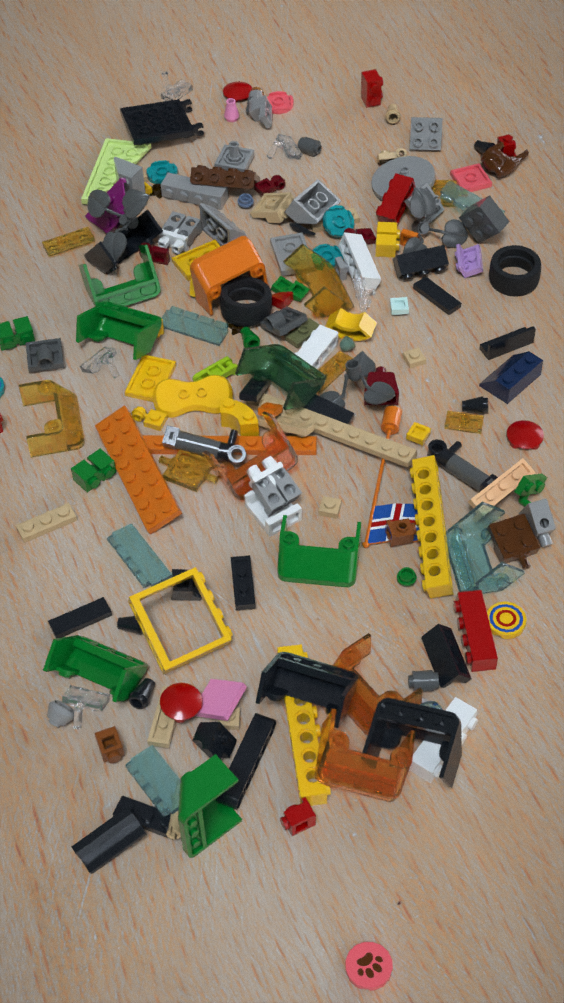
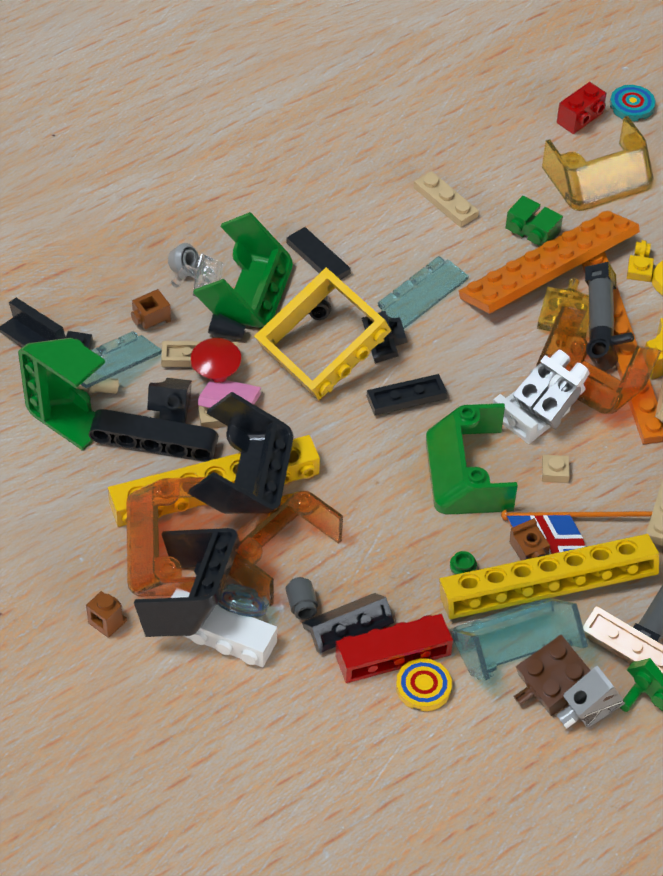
camera: 75 degrees right, 0 degrees up
(298, 817) = (88, 496): red brick -> none
(420, 817) = (108, 609): none -> dark orange brick

